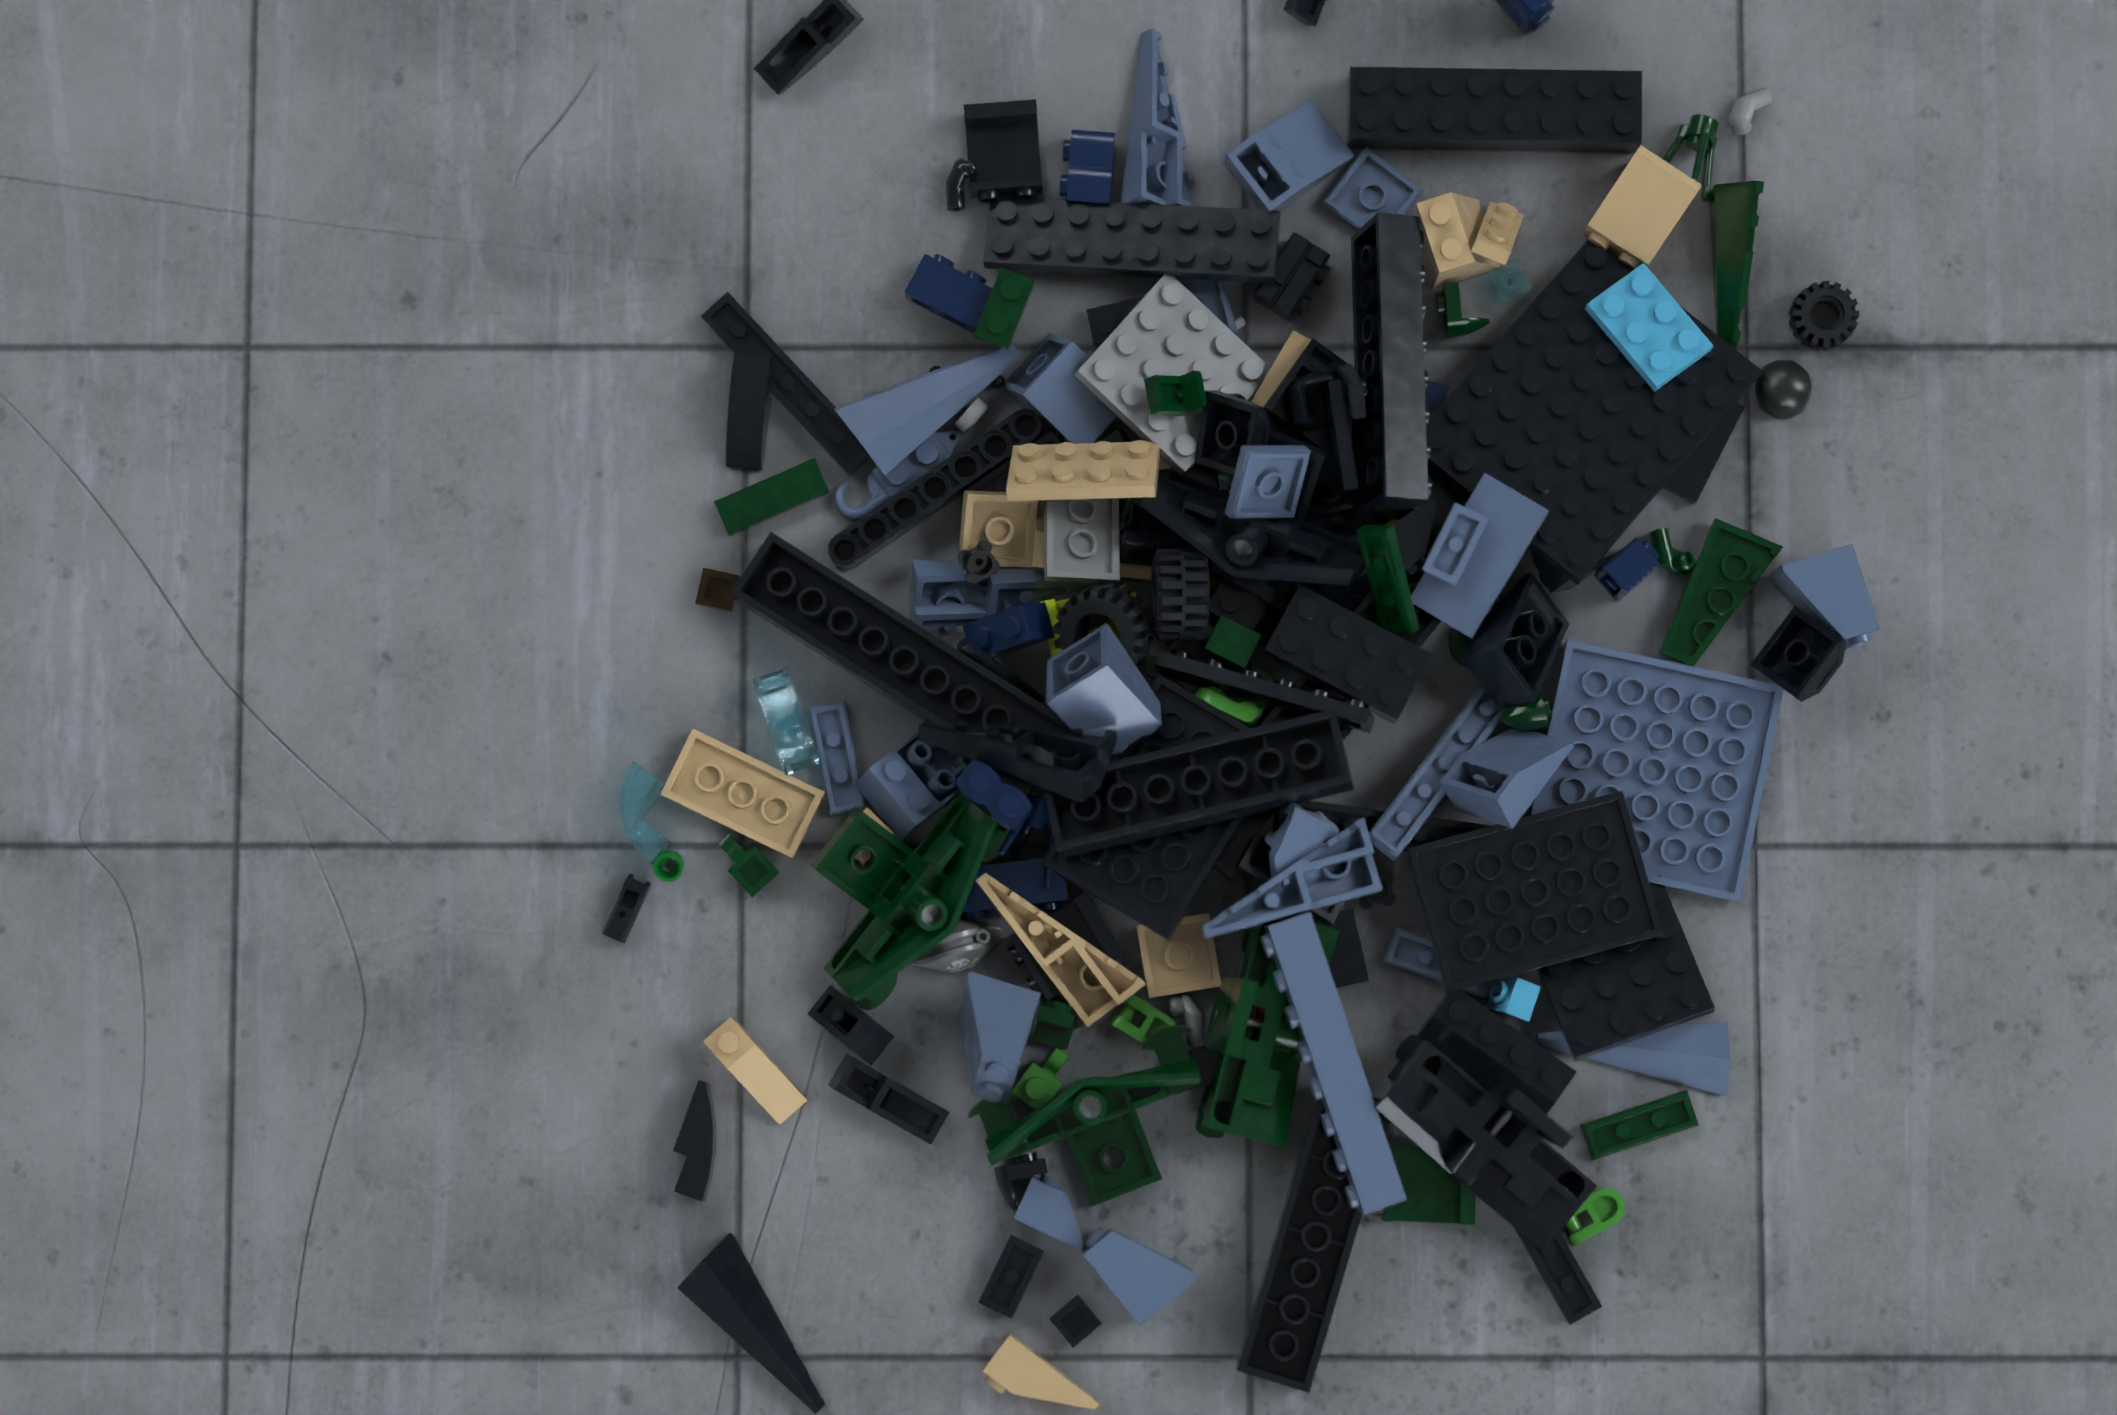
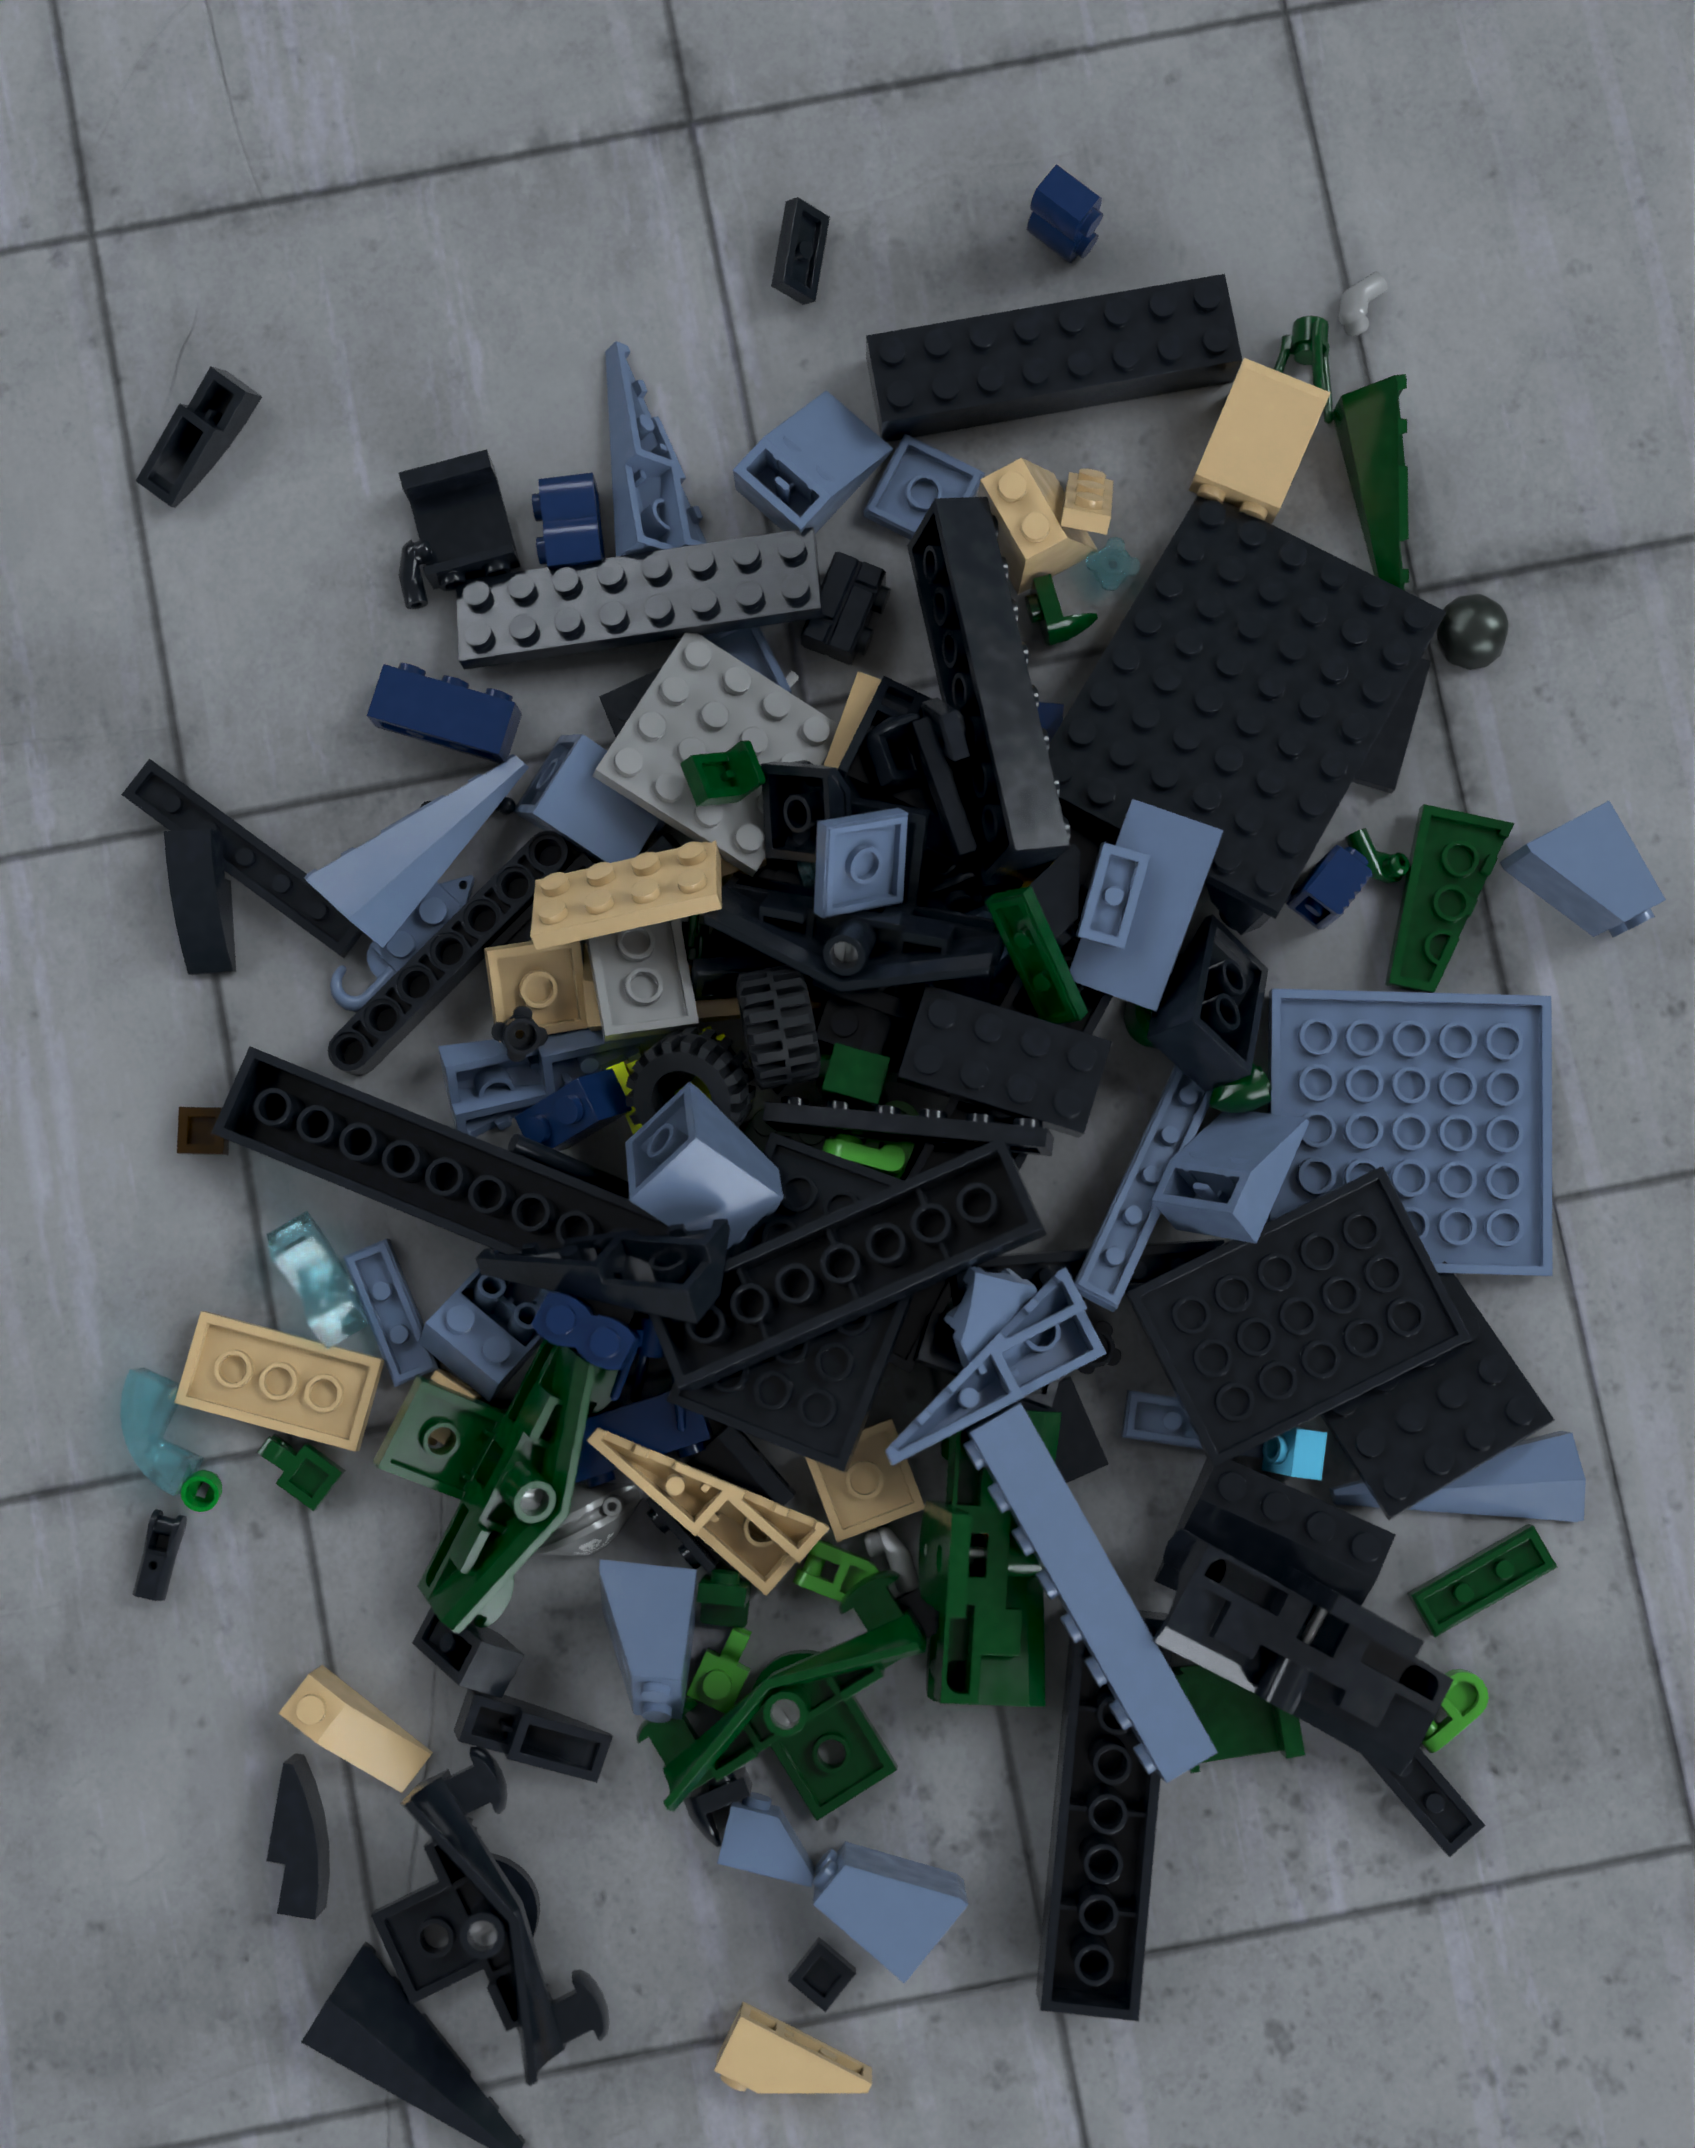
camera: 10 degrees left, 0 degrees up
(771, 497) = (252, 1002): dark green tile -> none
(828, 1227) = (489, 1917): none -> black piece
(971, 415) = (480, 854): light grey tile -> none
(1004, 308) = (493, 712): dark green plate -> none
(1011, 1276) = (730, 1933): black plate -> none
(1649, 327) = (1297, 583): medium azure plate -> none
(1801, 655) = (1569, 953): black slope -> none
(1831, 295) = (1521, 513): black tyre -> none

